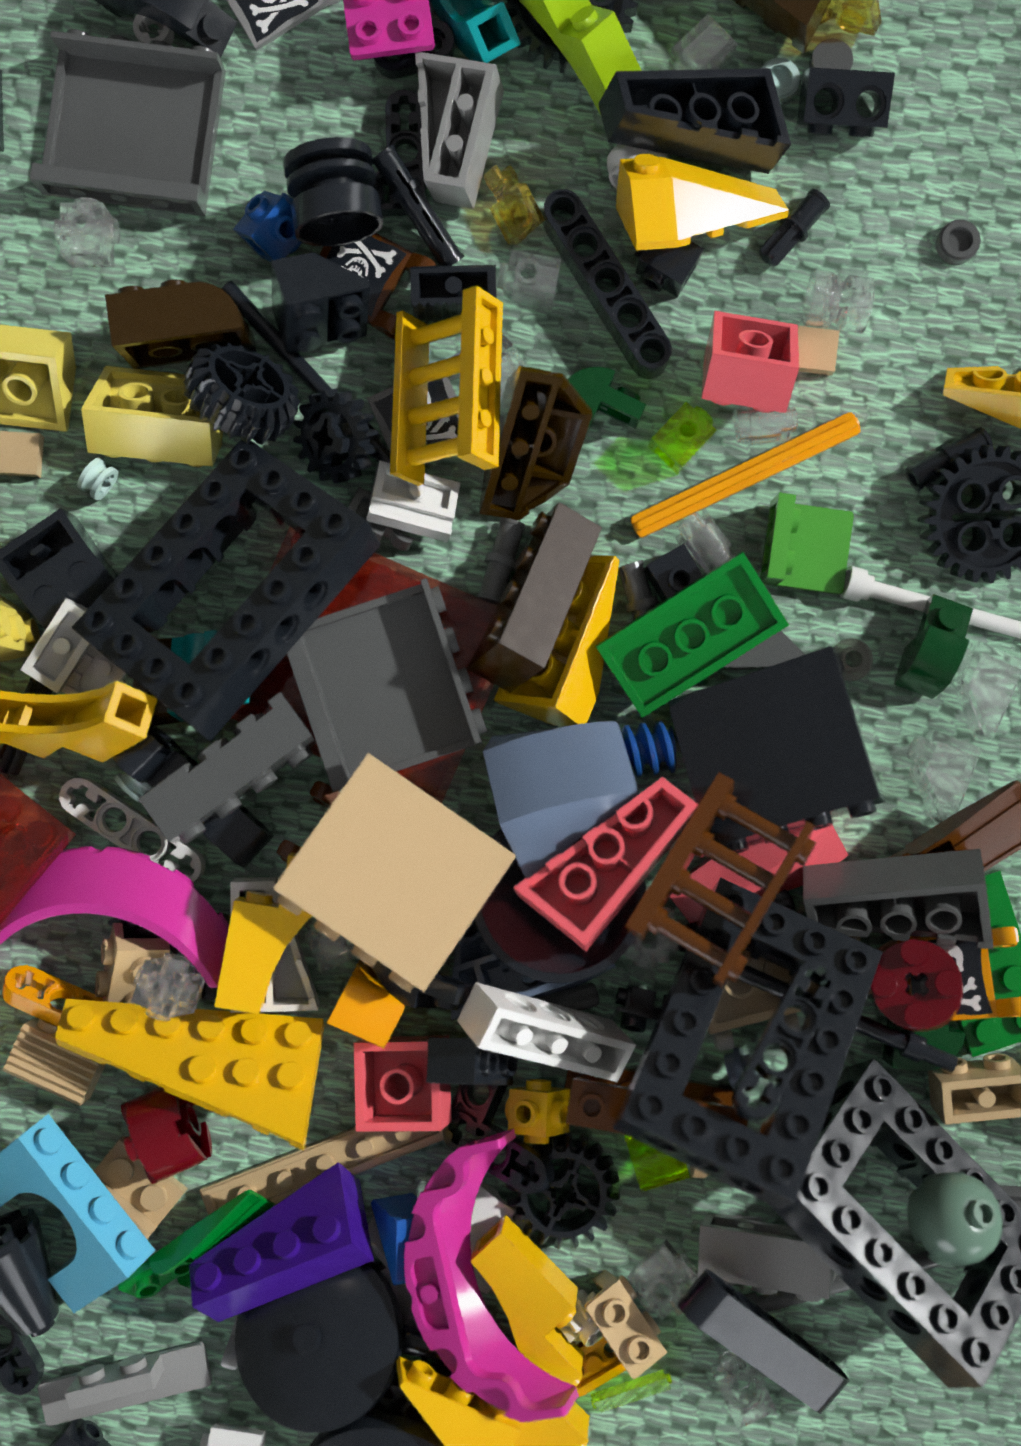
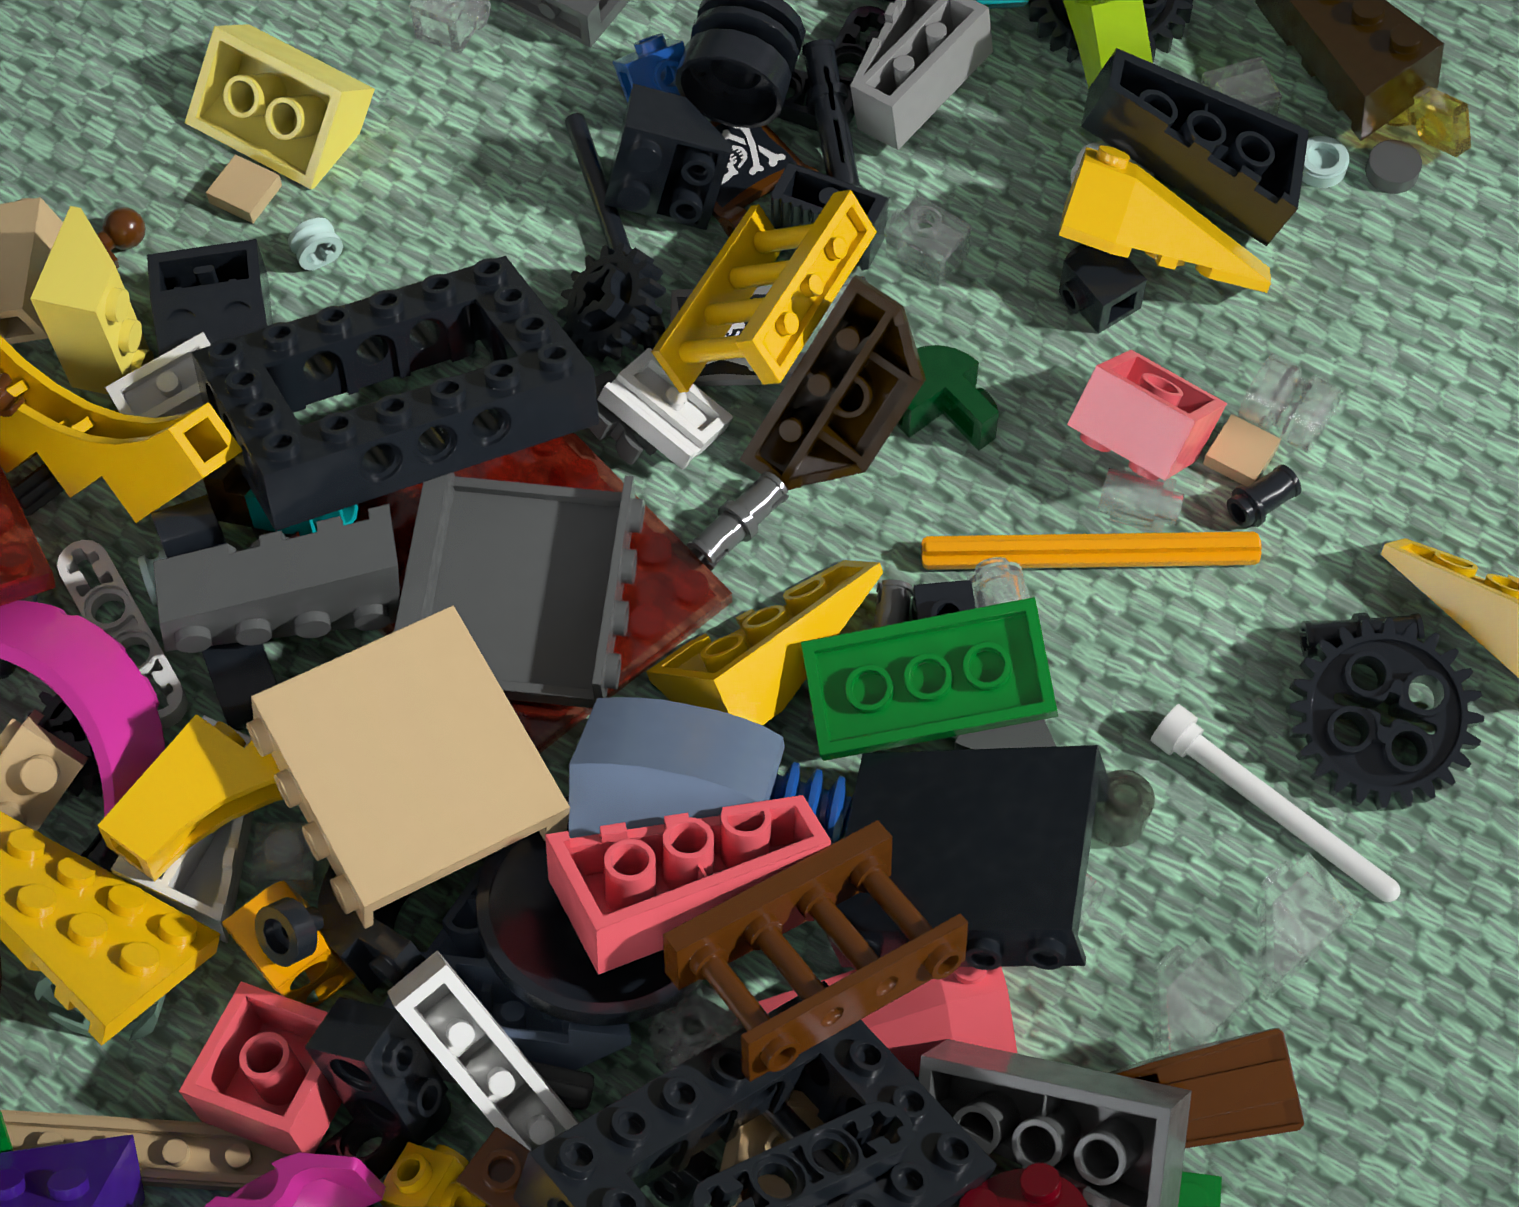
camera: 25 degrees right, 25 degrees down
(147, 418) = (416, 208): light yellow slope -> none
(167, 987) = (56, 795): clear brick -> none
(172, 322) = (495, 122): dark brown brick -> none
(241, 392) = (528, 211): black gear -> none
(377, 1017) = (288, 931): none -> black tile
(515, 205) = (947, 164): clear yellow plate -> none
(536, 599) = (751, 562): wedge -> none
(605, 265) = (1011, 301): black beam -> none
(683, 437) = (1029, 473): clear neon green brick -> none
(794, 227) = (1273, 312): black axle -> none
(806, 546) = (1127, 657): bright green bracket -> none
(839, 390) = (1253, 503): none -> black pin
(845, 89) = (1396, 188): black brick -> none
(938, 649) = (1243, 842): dark green brick -> none
(958, 242) = (1474, 406): dark grey tile -> none

